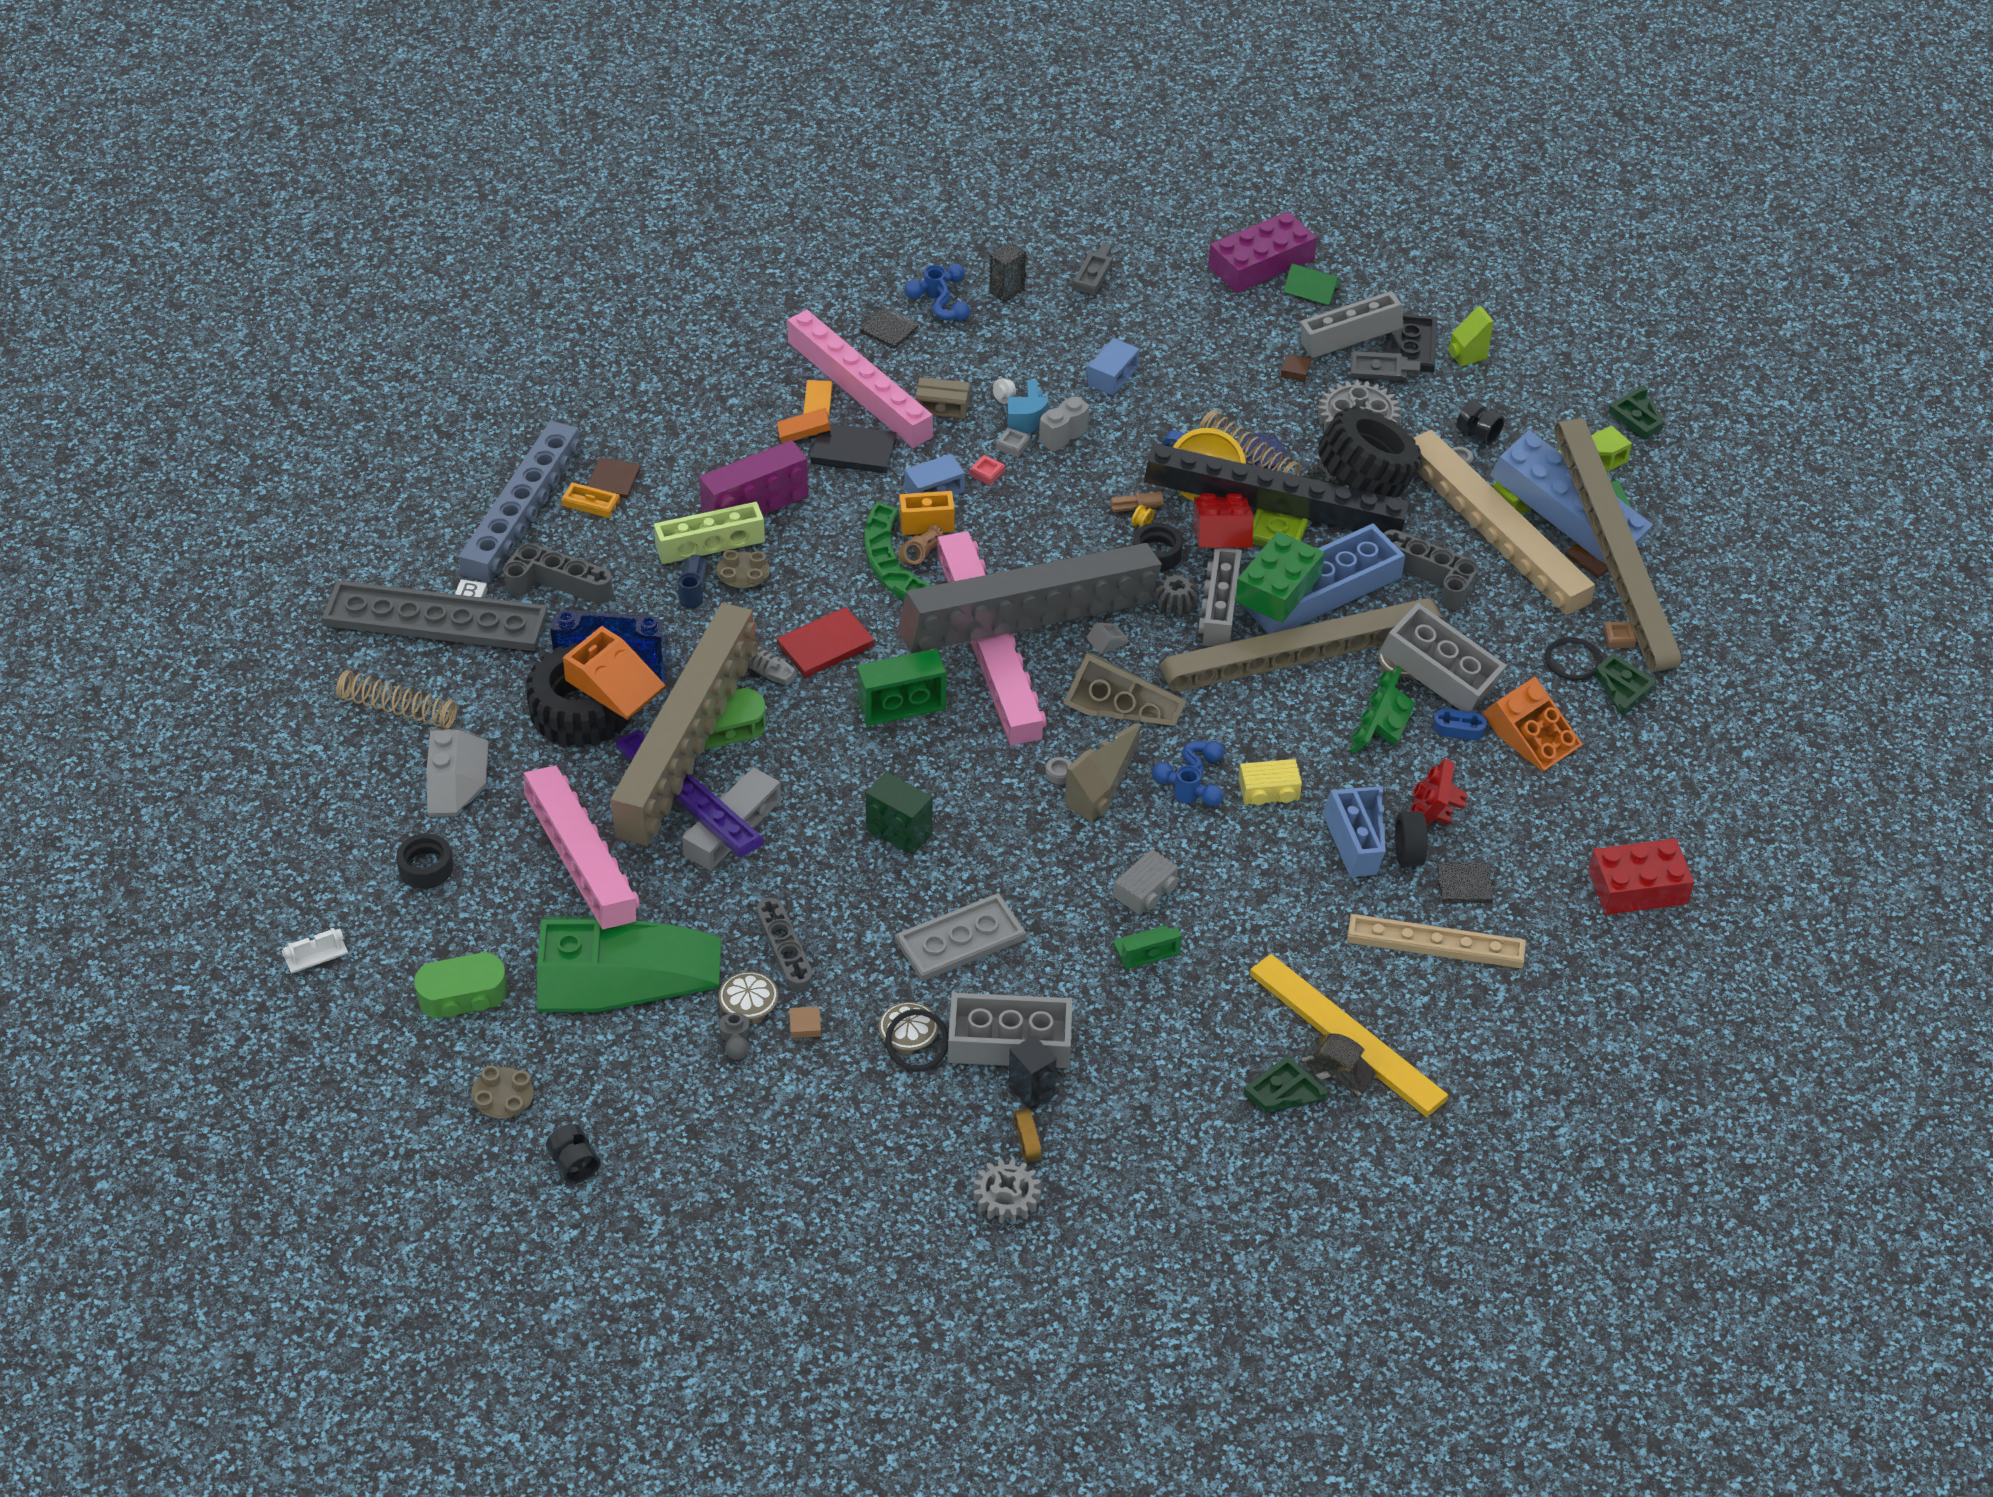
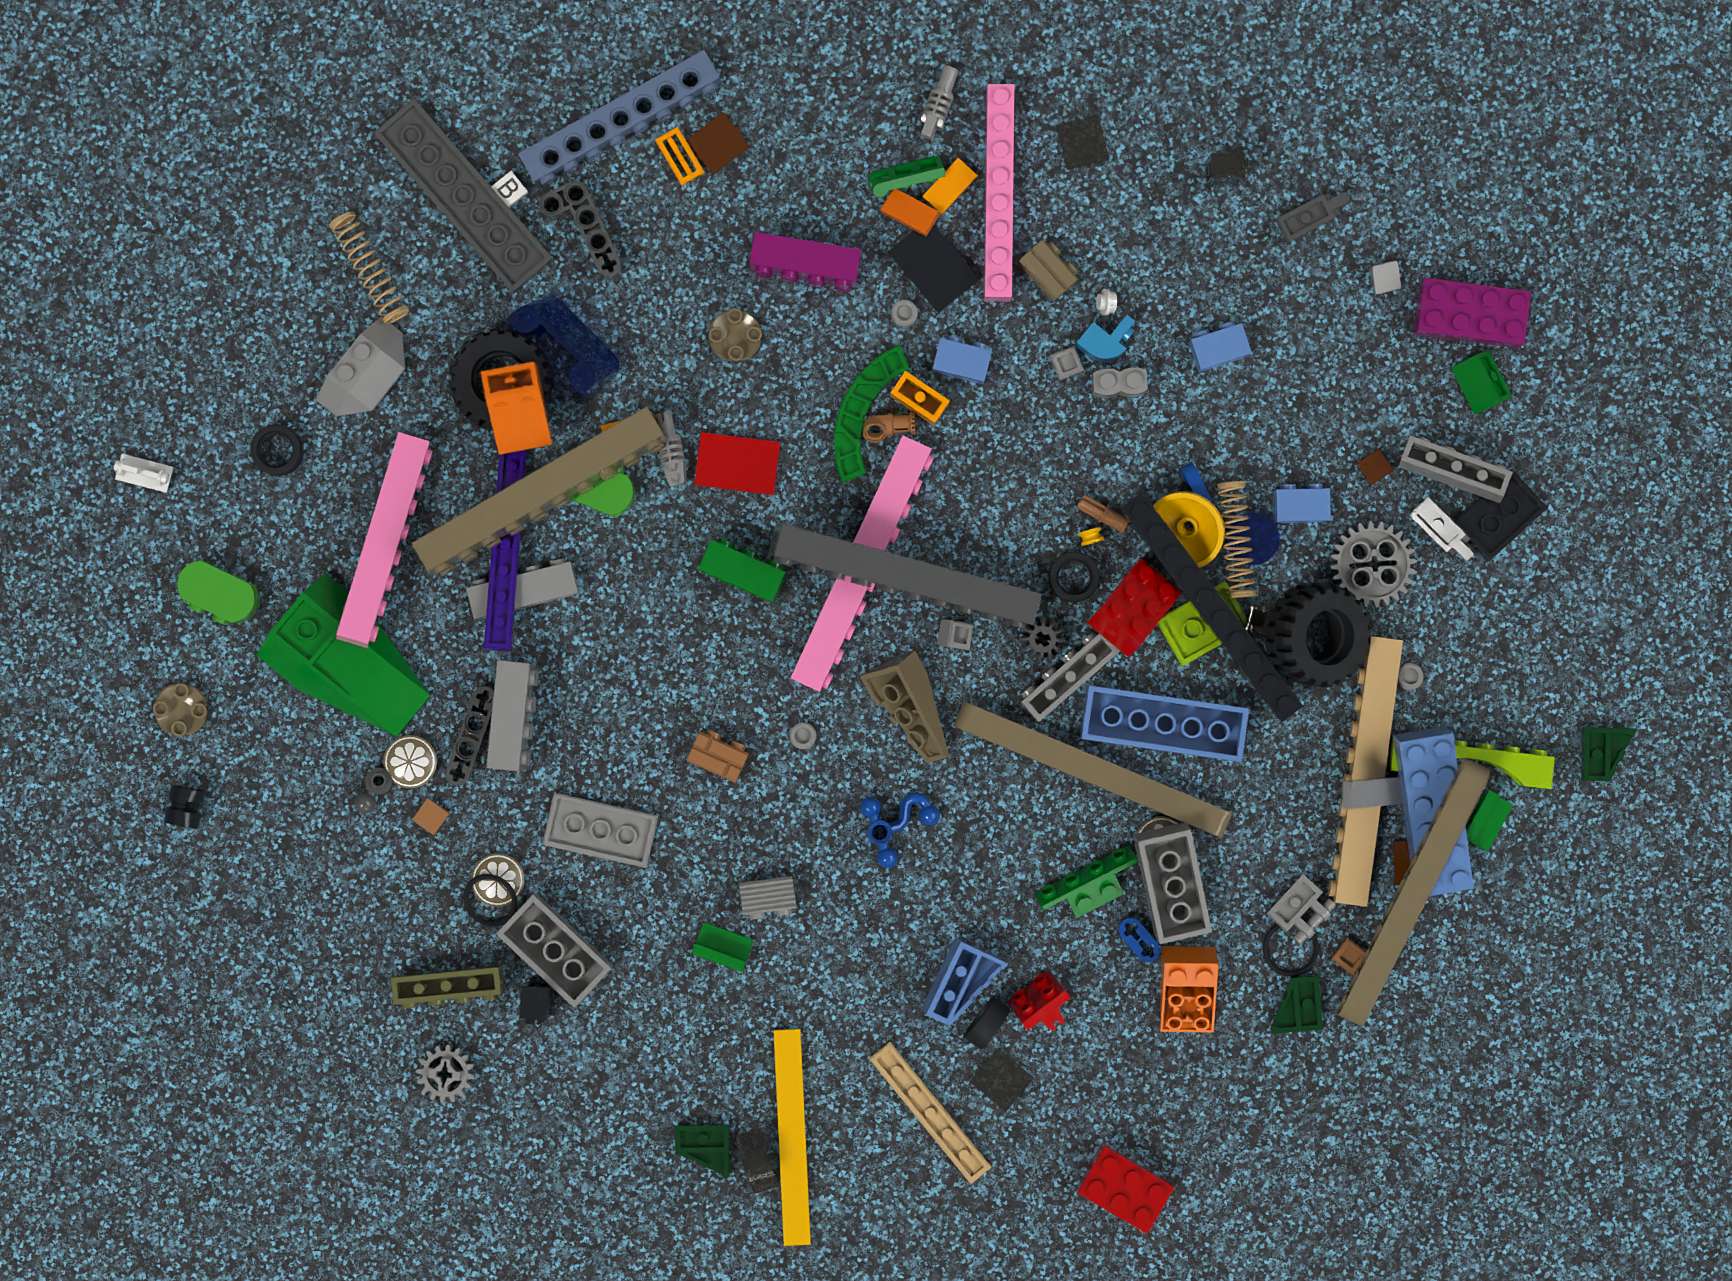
camera: 45 degrees right, 40 degrees up
(692, 581) = (687, 316): dark blue piece -> none
(709, 532) = (733, 281): yellowish green brick -> none
(760, 361) = (939, 103): none -> light grey hinge
(778, 409) = (906, 175): none -> green plate
(807, 894) = (511, 716): none -> light grey brick
(860, 485) = (904, 313): none -> light grey tile
(899, 813) = (637, 694): dark green brick -> none
(935, 287) = (1137, 119): blue piece -> none
(942, 1119) = (449, 984): none -> olive brick
(987, 470) = (1018, 378): coral tile -> none
(1006, 820) = (718, 756): none -> medium nougat brick
(1027, 1135) = (497, 1039): pearl gold beam -> none
(1098, 773) = (813, 778): dark tan wedge -> none
(1181, 271) = (1385, 277): none -> light grey slope
(1270, 781) = (941, 879): light yellow brick -> none
(1272, 410) = (1301, 505): none -> medium blue brick
(1279, 576) = (1112, 714): green brick -> none
(1439, 566) = (1264, 770): dark grey beam -> none
(1472, 338) = (1540, 564): lime slope -> none
(1477, 421) = (1457, 659): black wheel -> none
(1518, 507) = (1371, 792): none -> light grey tile
(1544, 627) = (1294, 905): none -> light grey plate

